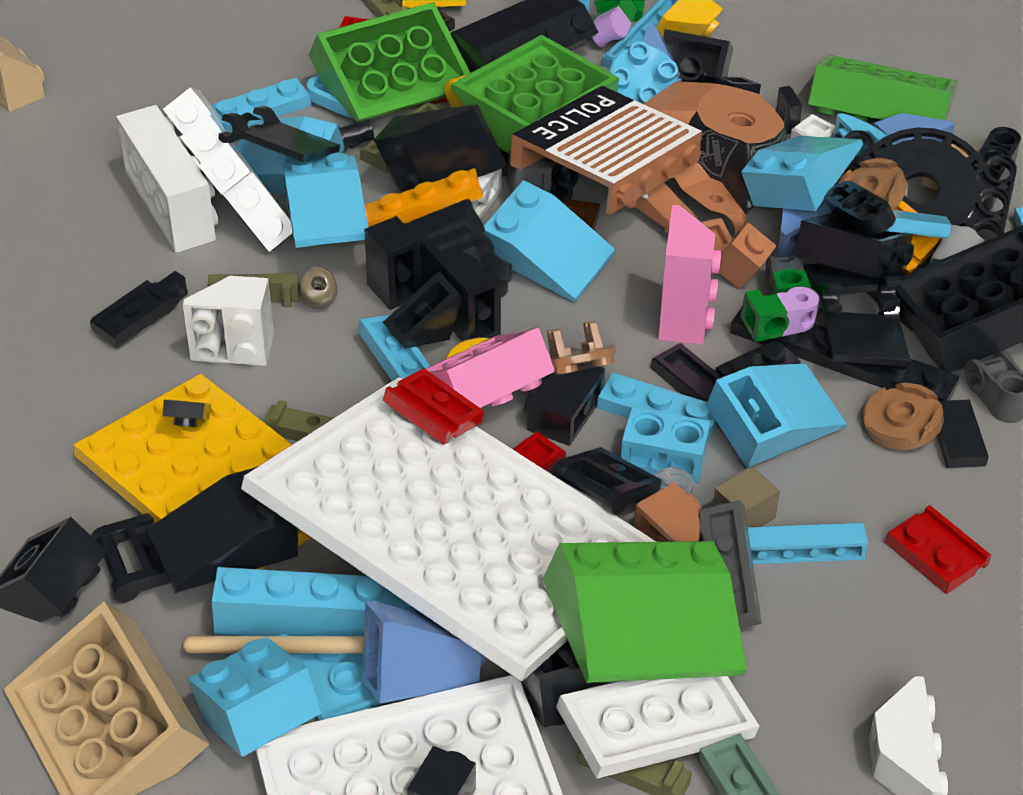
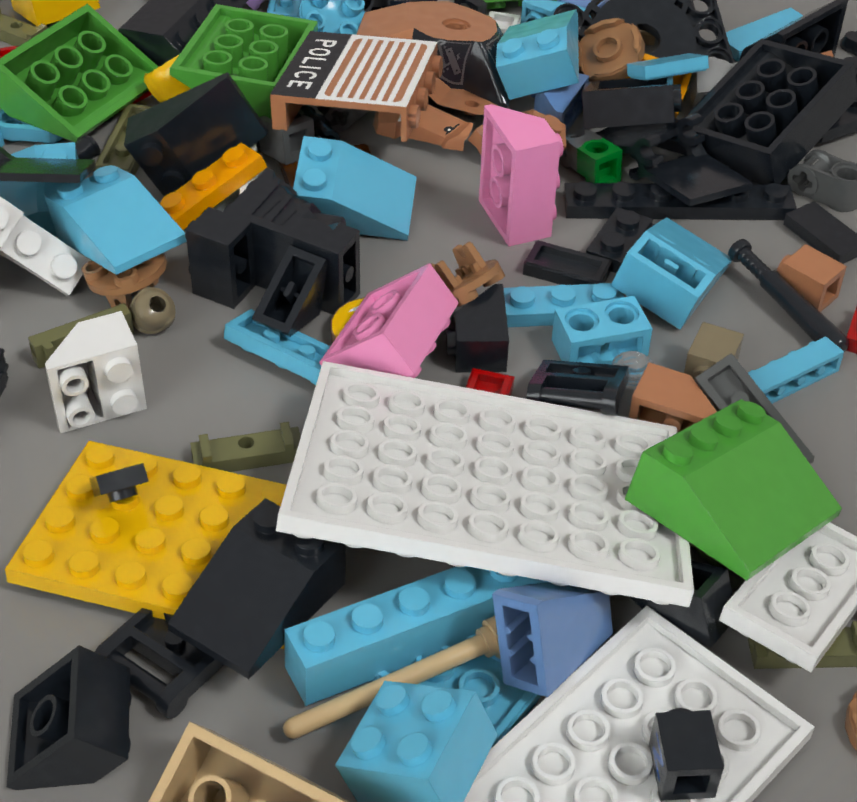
camera: 30 degrees left, 0 degrees up
(312, 256) = (120, 286): none -> medium nougat plate
(433, 406) = (388, 374): red plate -> none
(779, 313) = (612, 182): leg -> none
(860, 208) = (645, 64): black beam -> none
(865, 486) = (795, 305): none -> black piece
(898, 468) = (813, 275): none -> nougat brick
(903, 416) = (775, 231): medium nougat tile -> none

